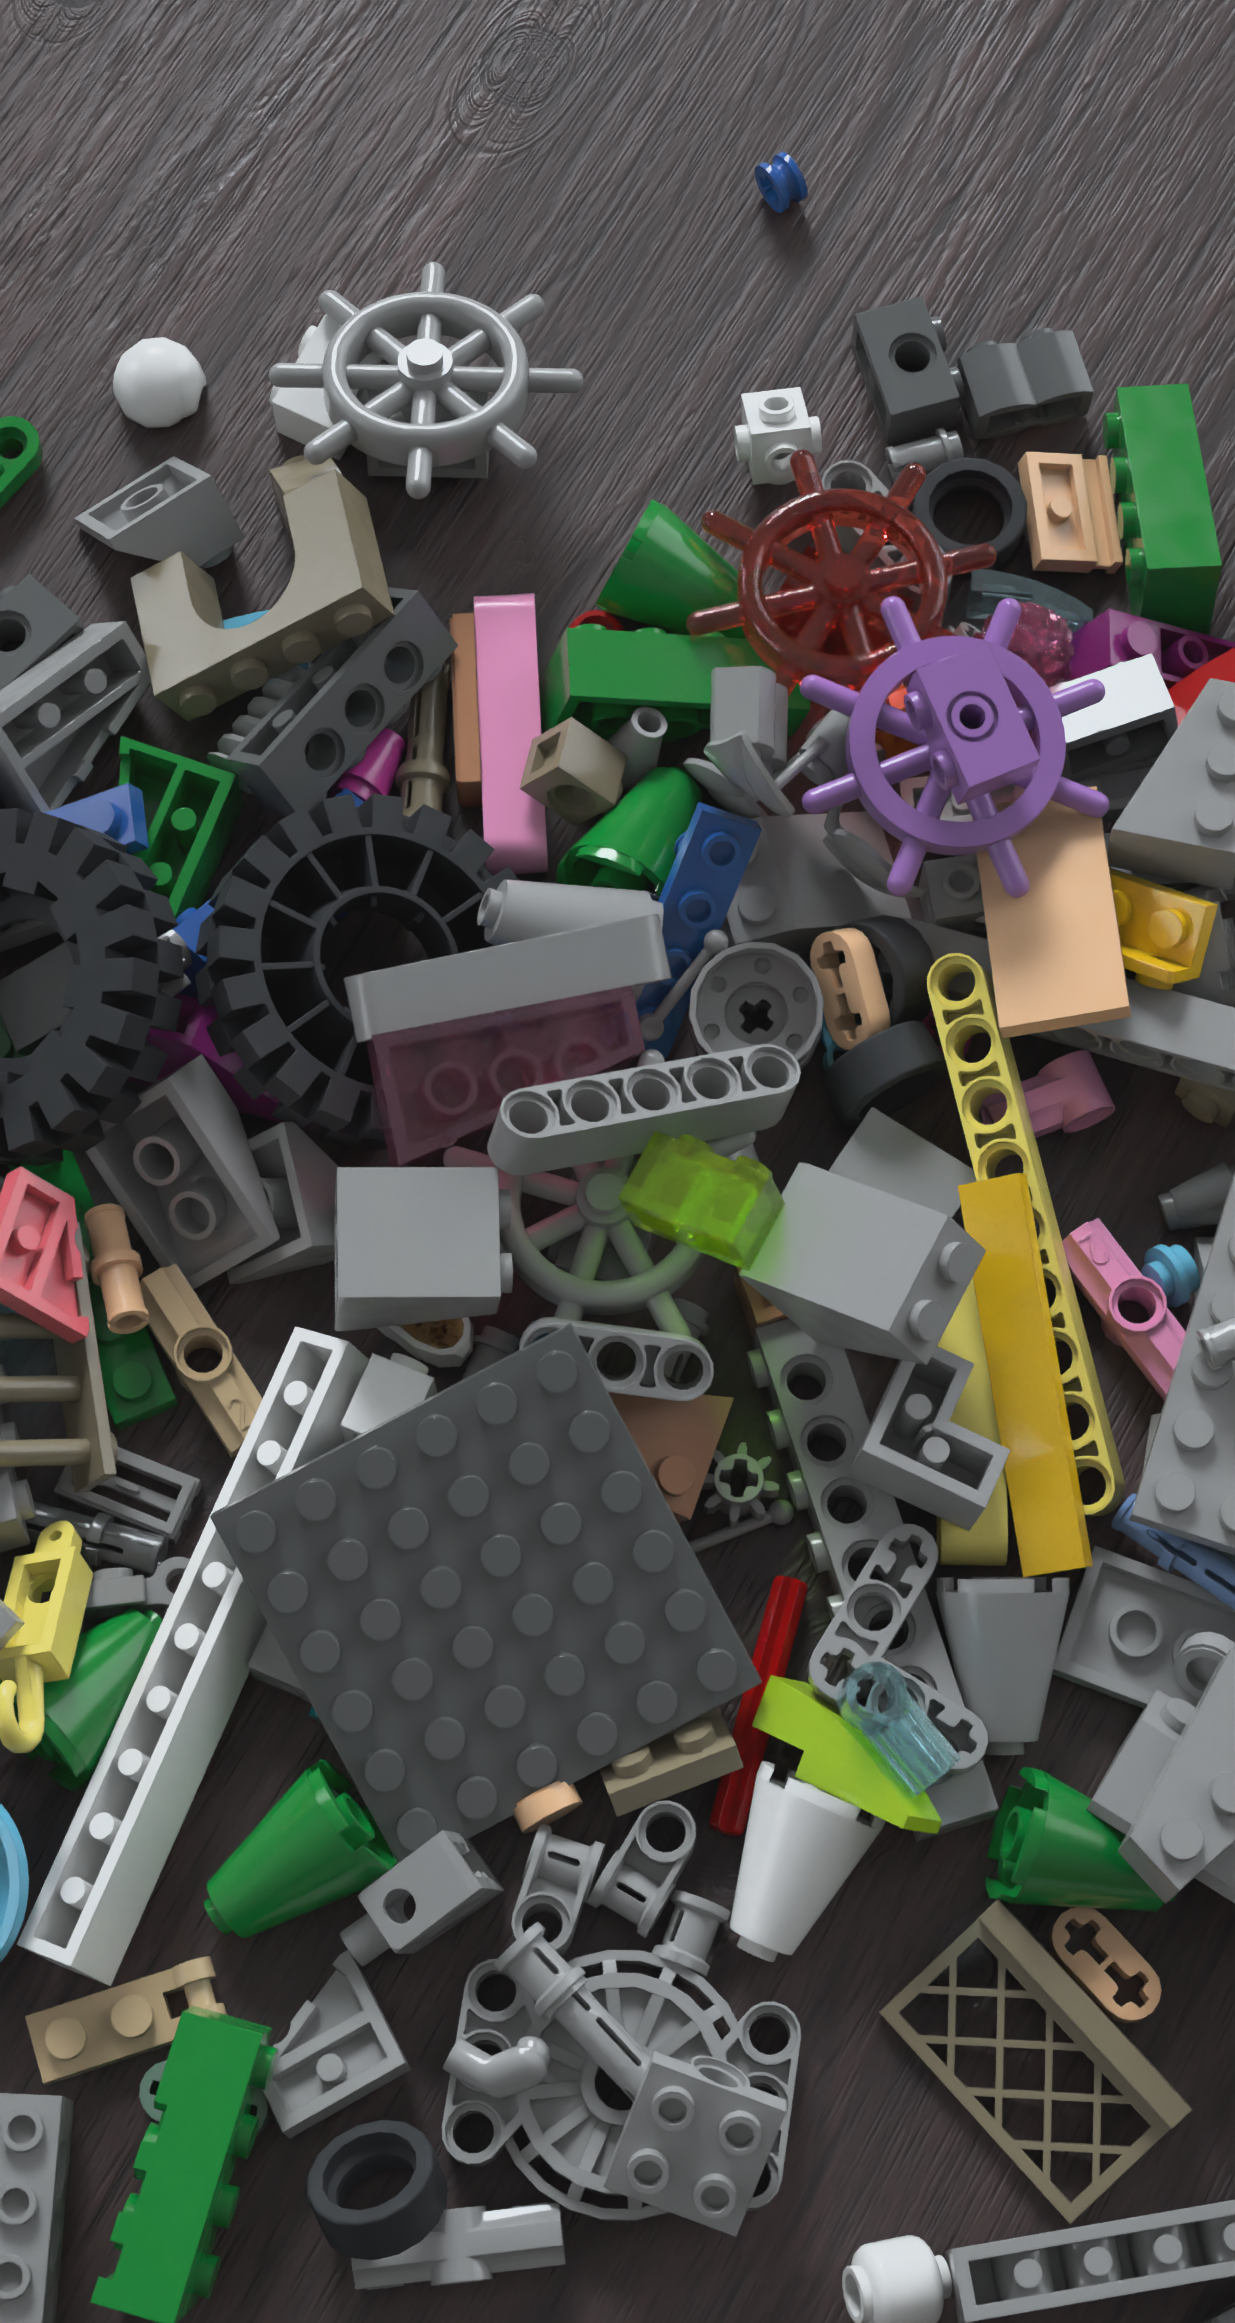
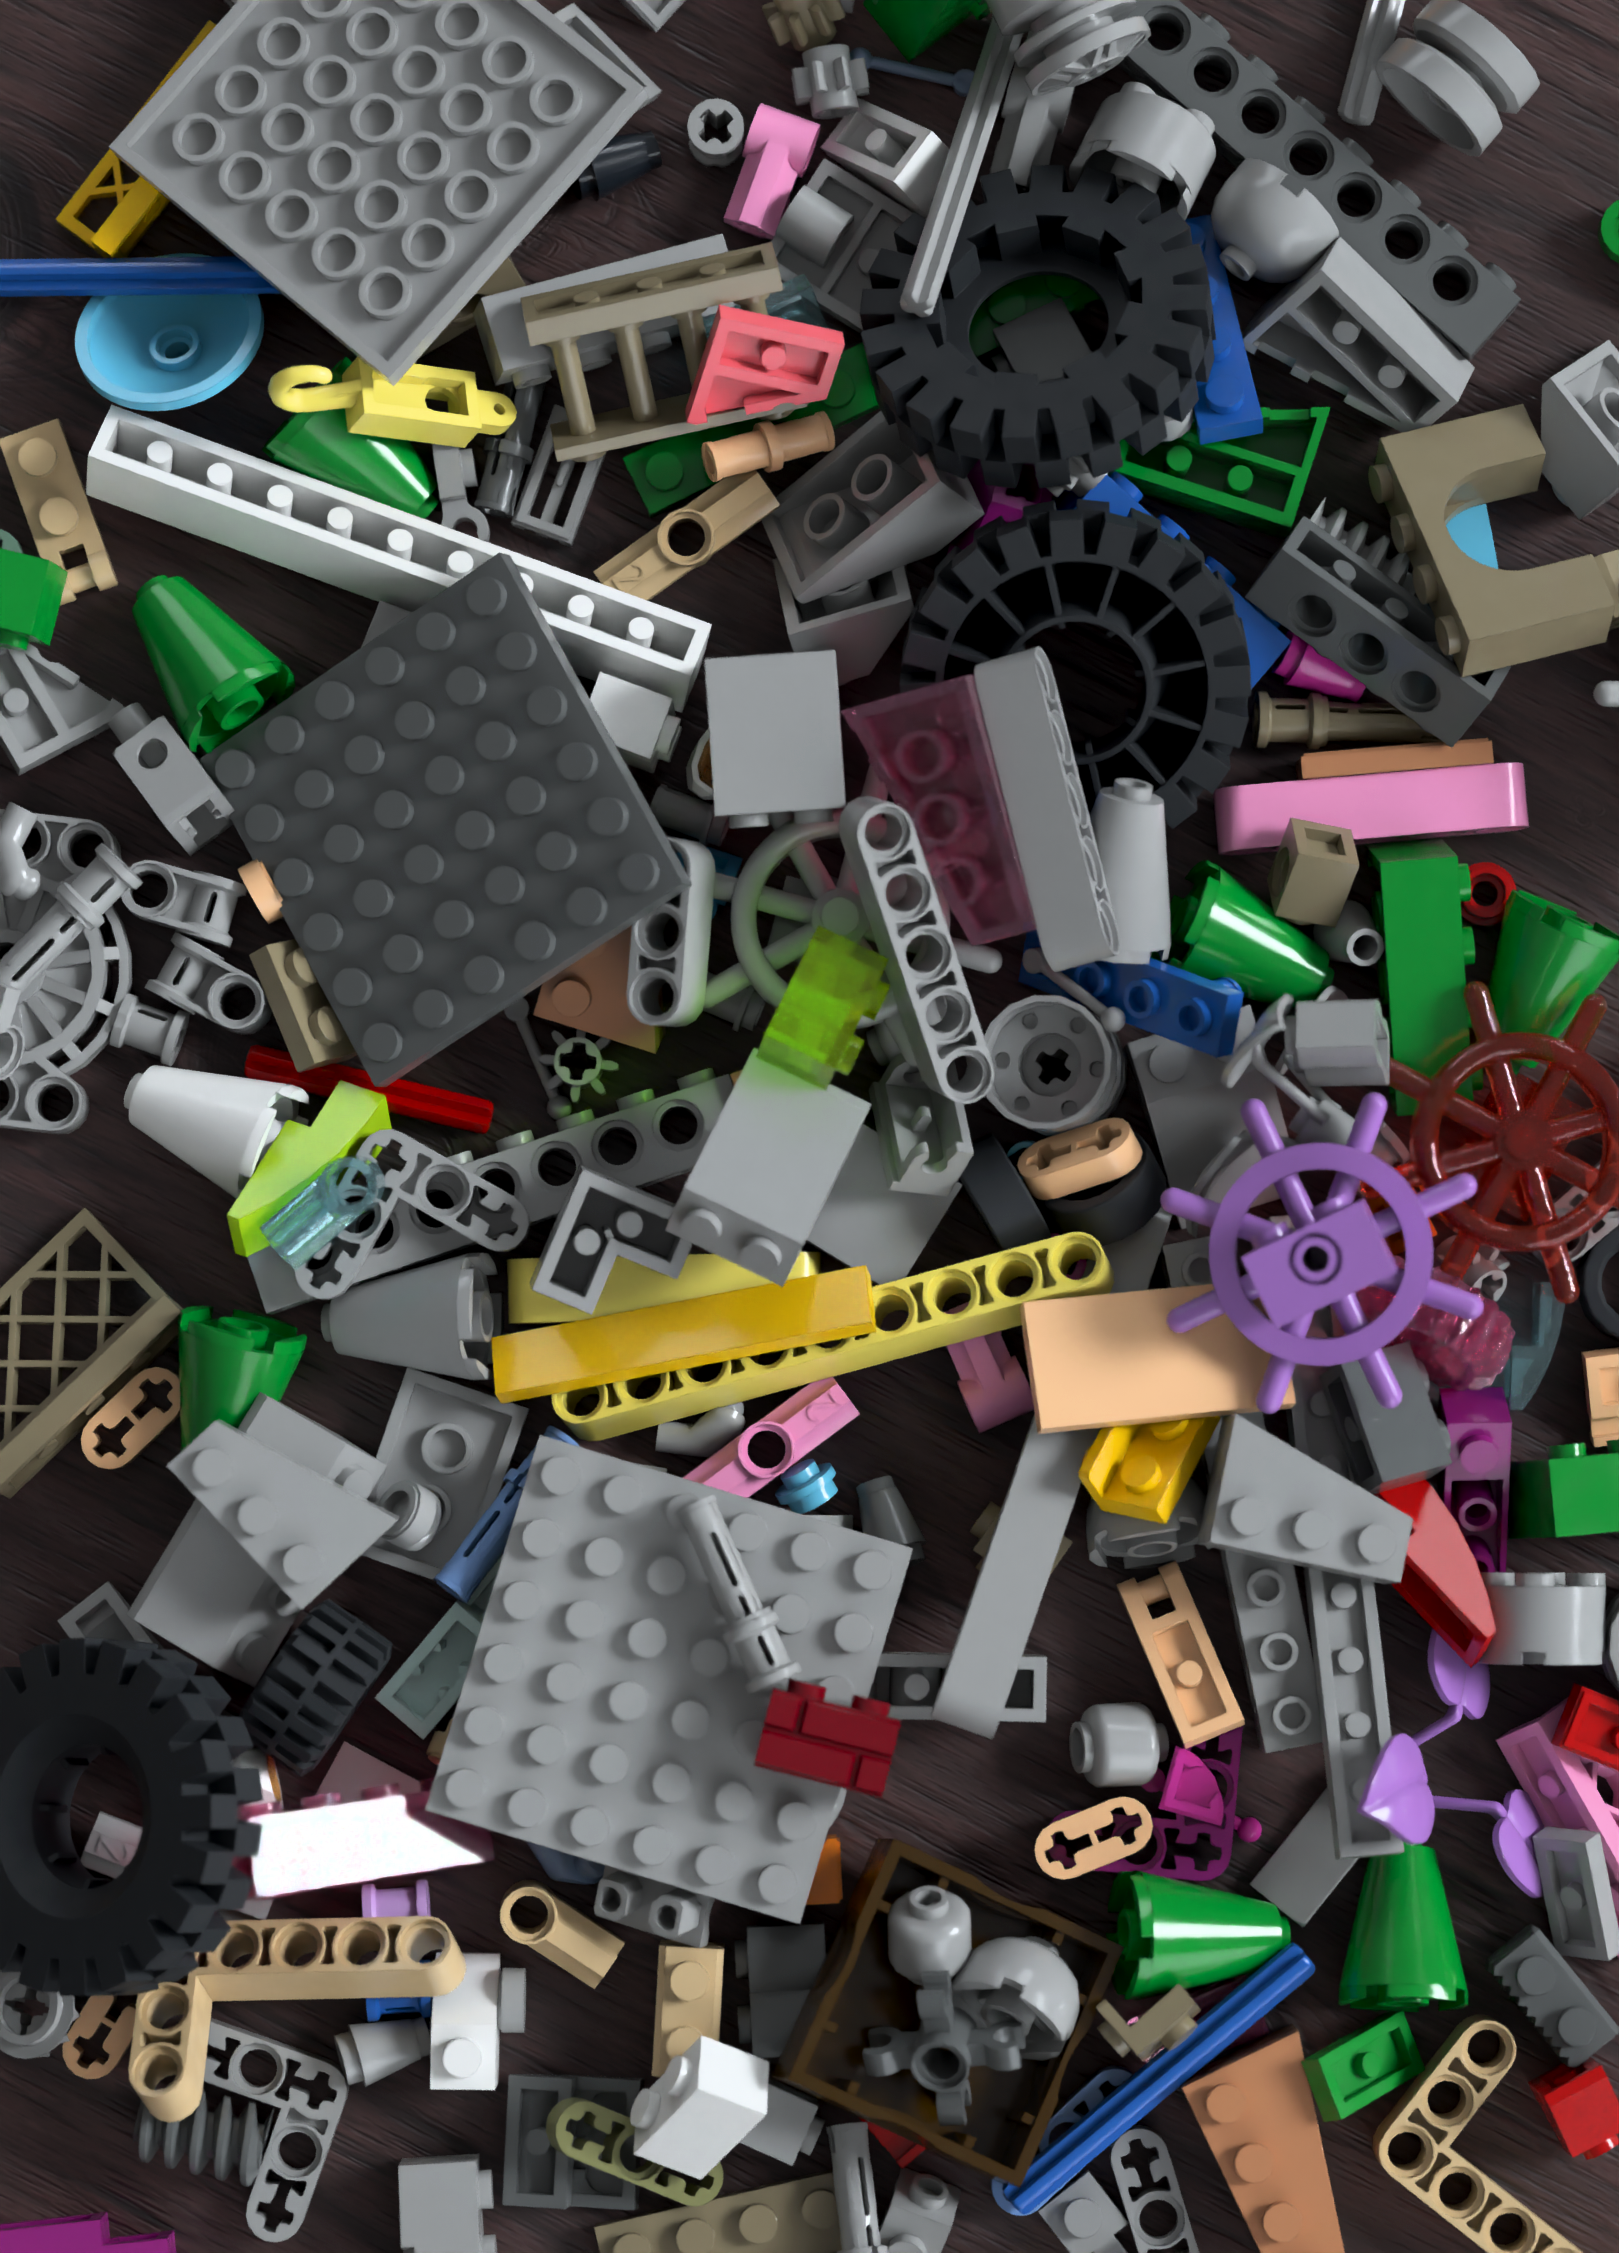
camera: 85 degrees right, 15 degrees up
(824, 1127) = (919, 1131): none -> light grey hinge
(1120, 1376) = (705, 1436): none -> light grey arm

